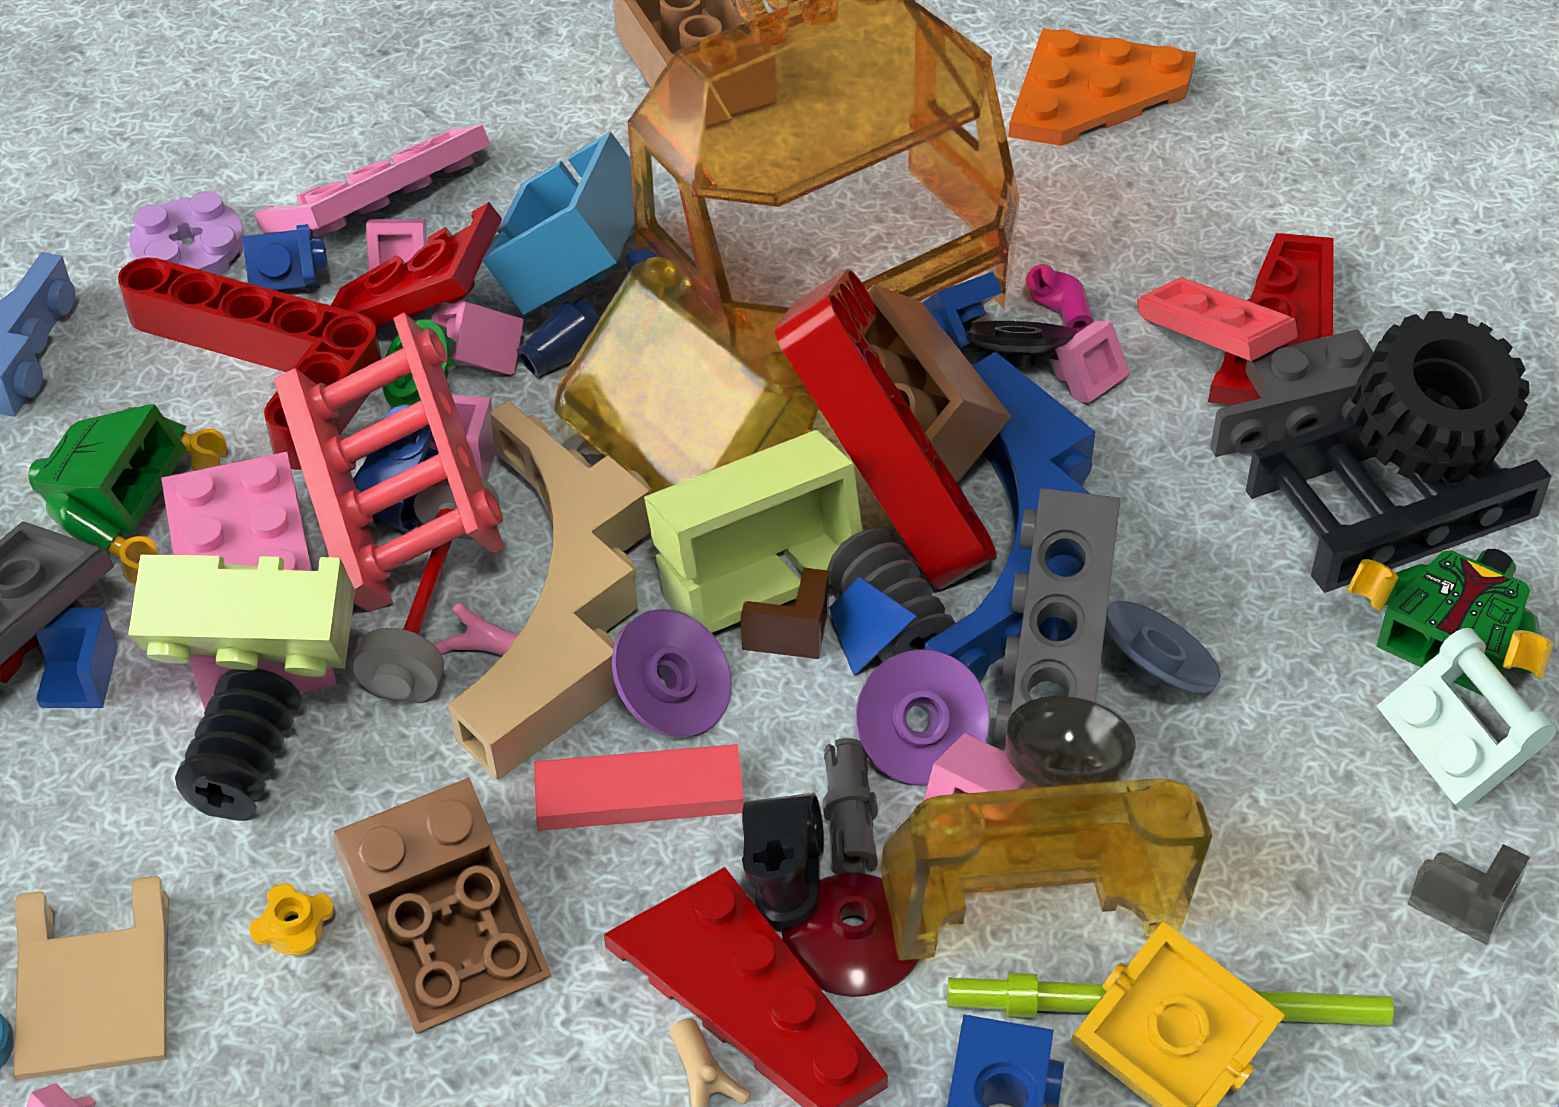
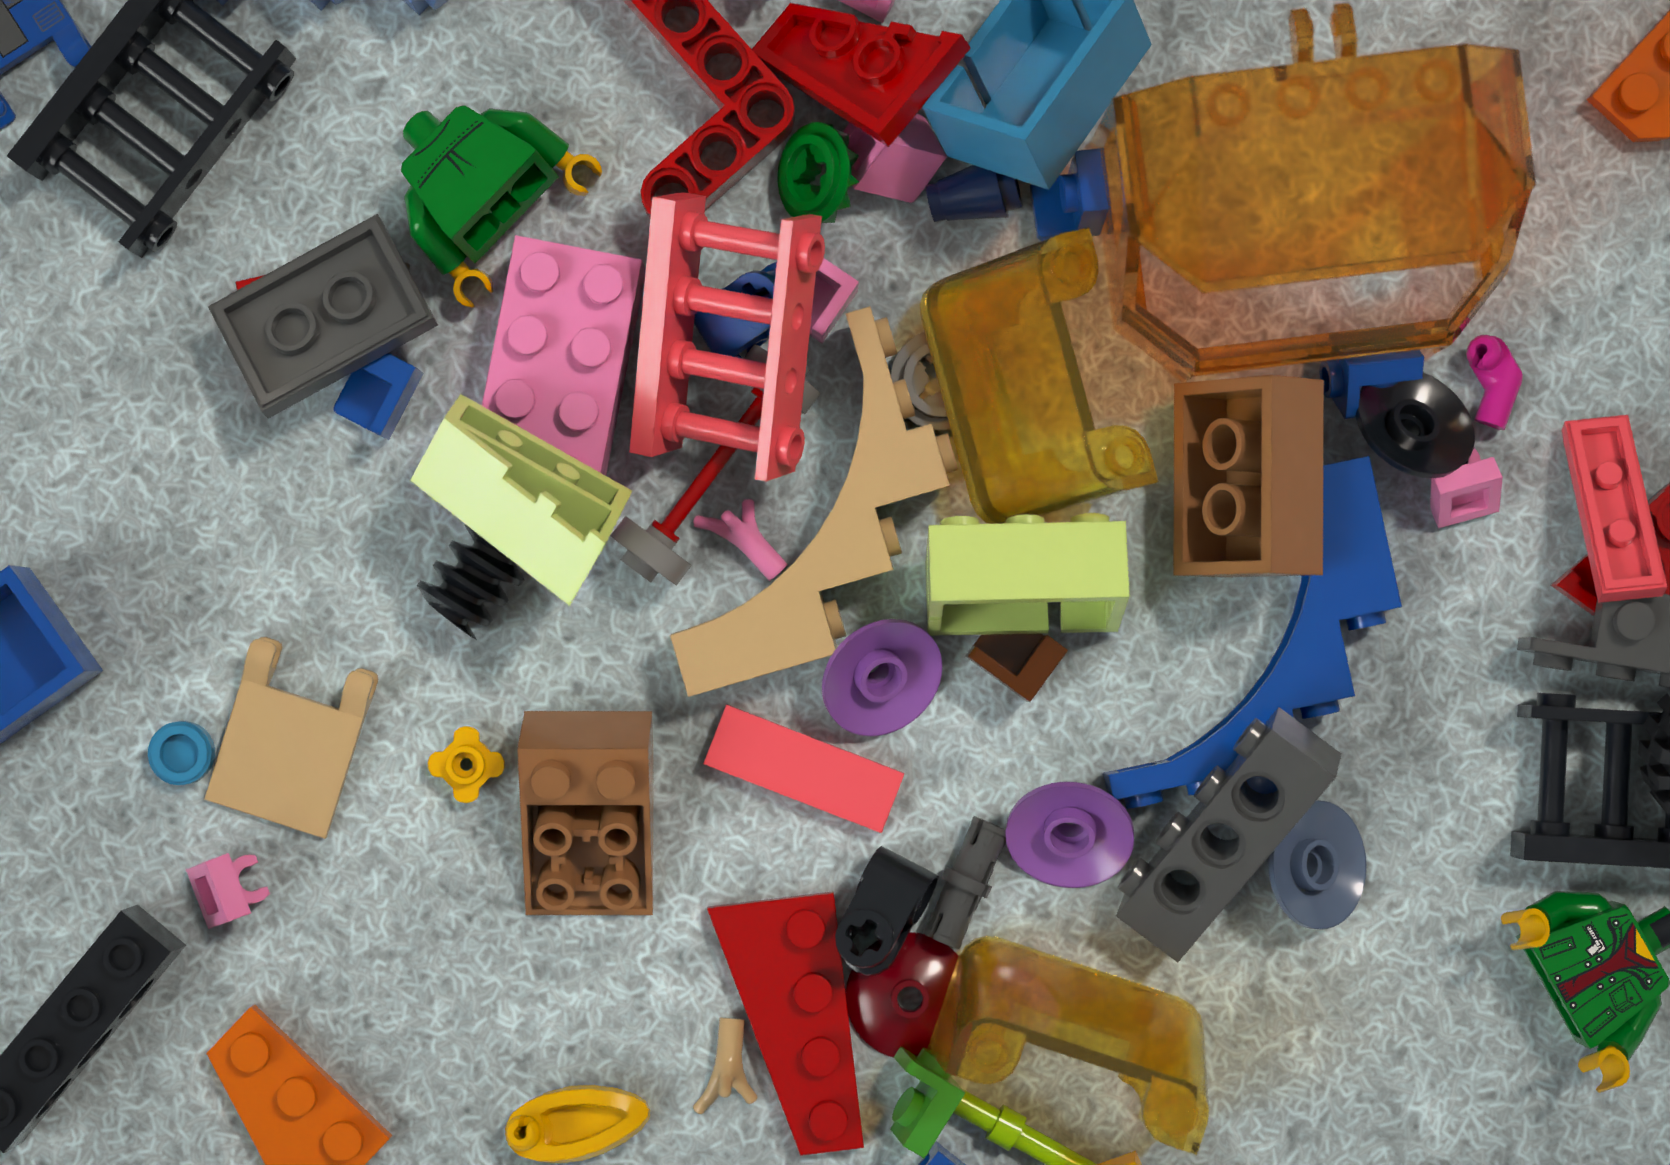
camera: 20 degrees right, 40 degrees up
(850, 386) = (1171, 522): red beam -> none
(867, 622) = (1071, 719): blue sticker -> none
(886, 566) = (1111, 696): dark grey piece -> none
(928, 991) = (928, 1107): none -> bright green bracket
(973, 768) = (1077, 932): bright pink panel -> none
(1068, 735) = (1183, 968): clear smoke piece -> none
(1447, 732) = (1502, 1076): light aqua plate -> none

